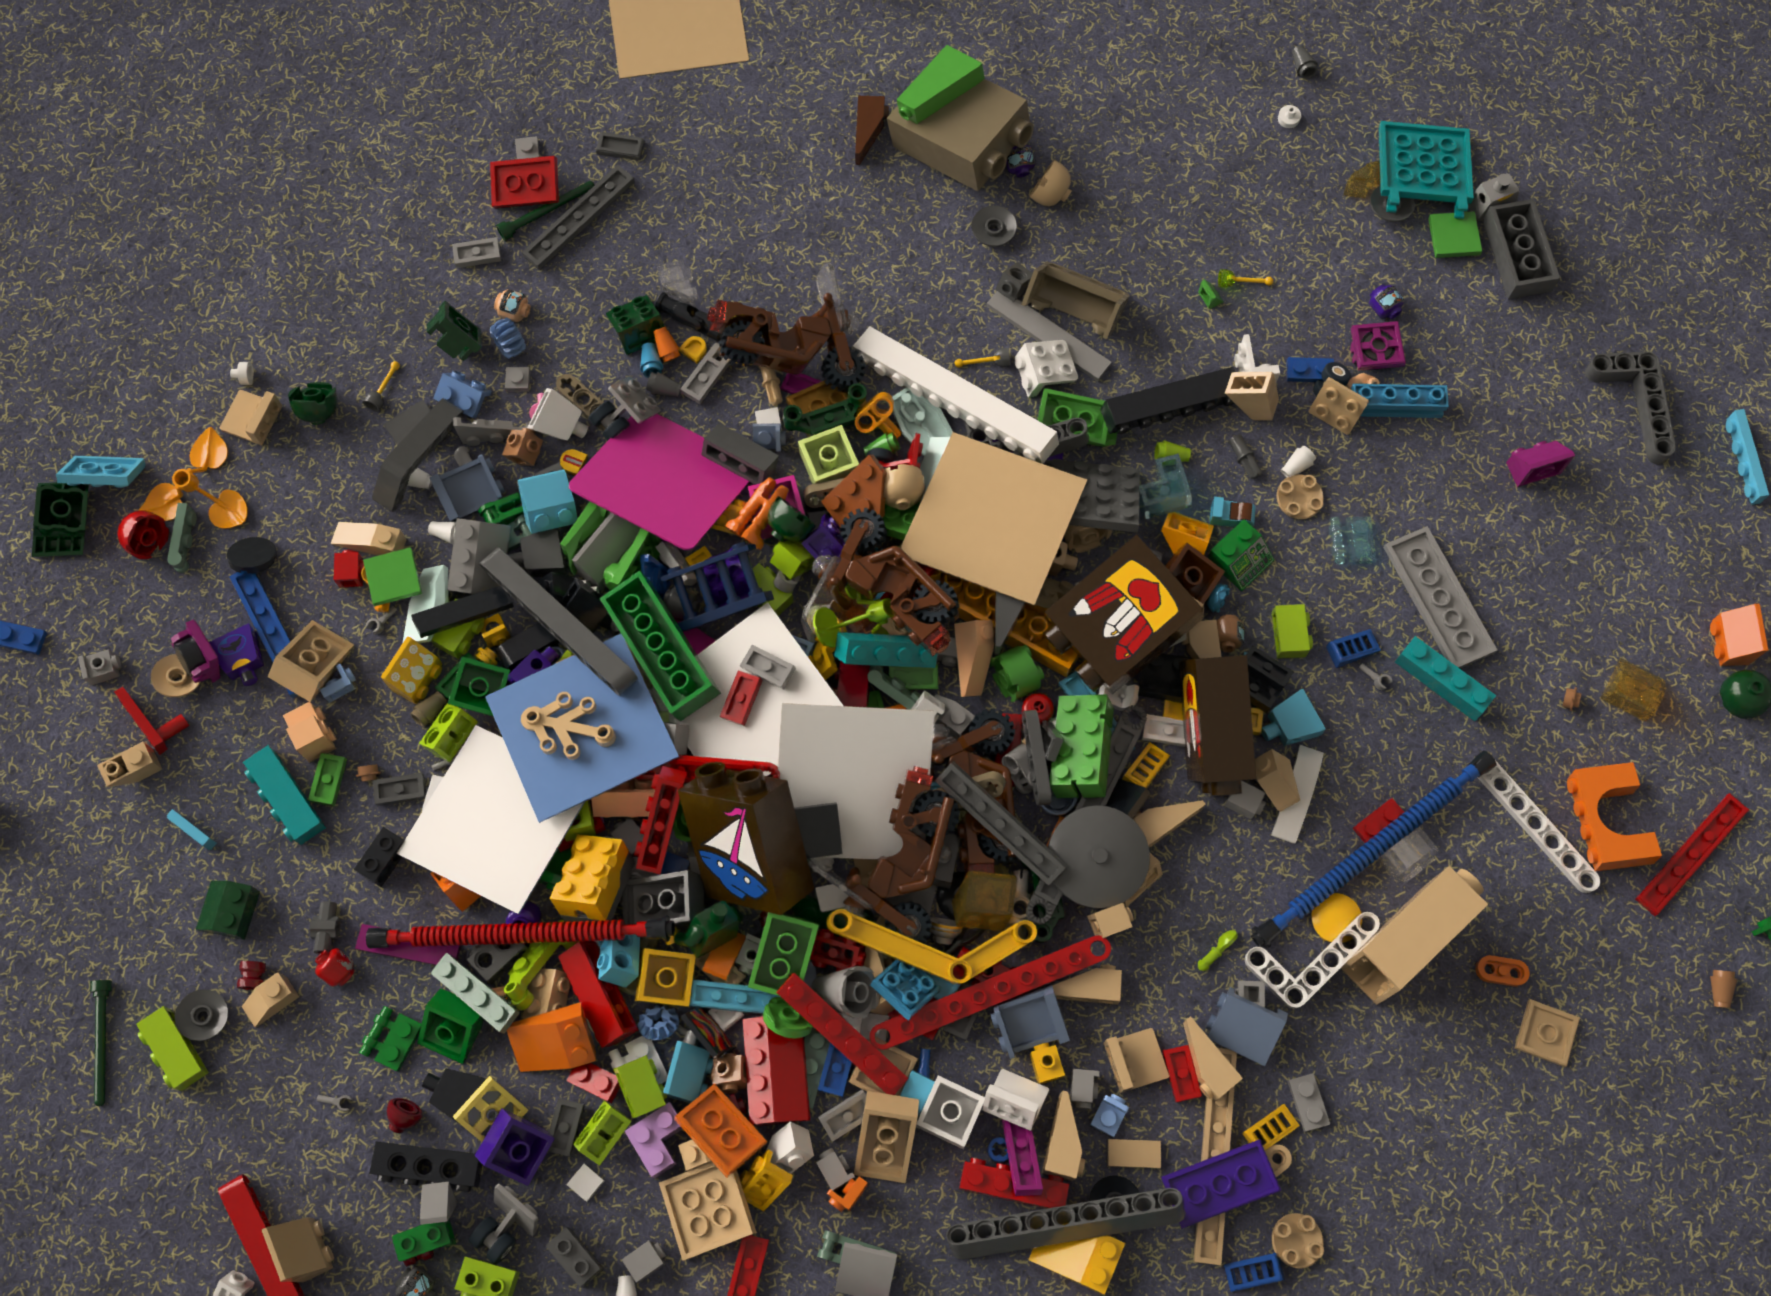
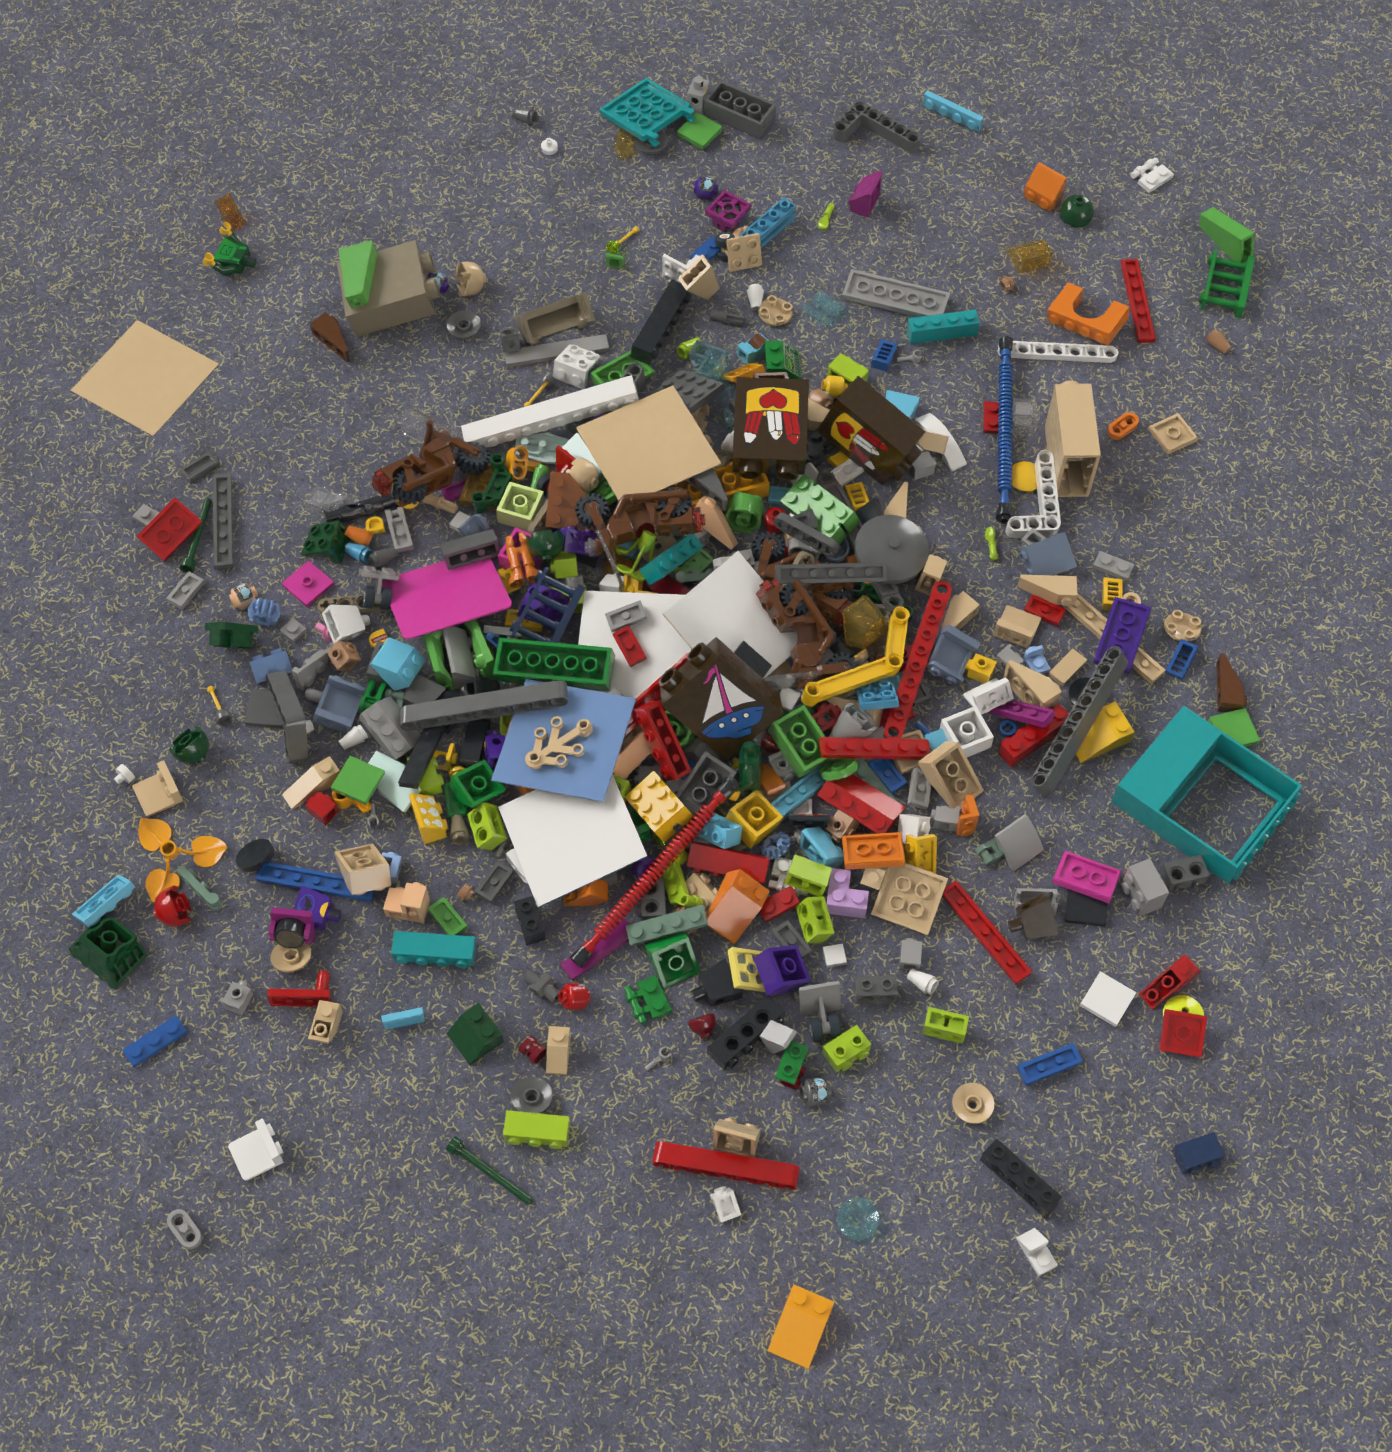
camera: 50 degrees left, 10 degrees down
(578, 347) = (307, 583): none -> dark pink plate
(1259, 632) = (834, 385): none -> yellow head
(1464, 449) = (823, 222): none -> lime piece

